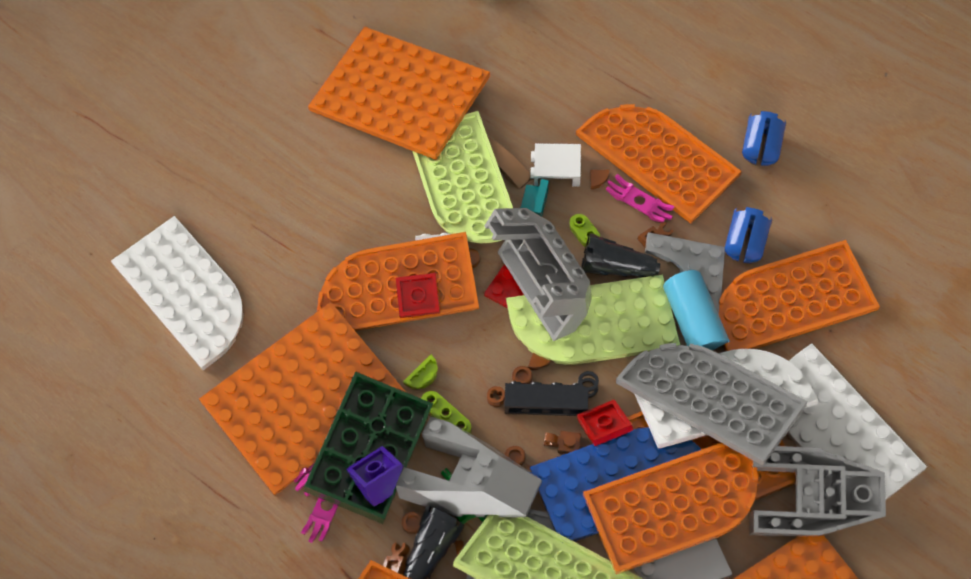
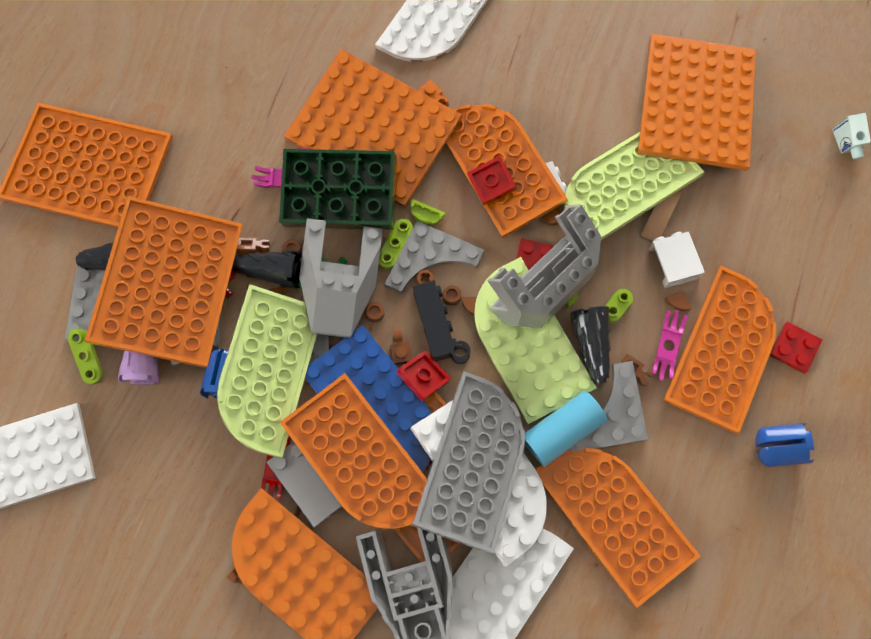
camera: 70 degrees right, 10 degrees up
(284, 326) = (434, 92): none -> orange plate
(376, 475) = (307, 198): dark purple slope -> none
(463, 384) = (426, 249): none -> light grey plate
(535, 197) = (630, 252): teal panel -> none
(673, 100) = (795, 347): none -> red plate
(759, 226) = (665, 456): blue cylinder -> none

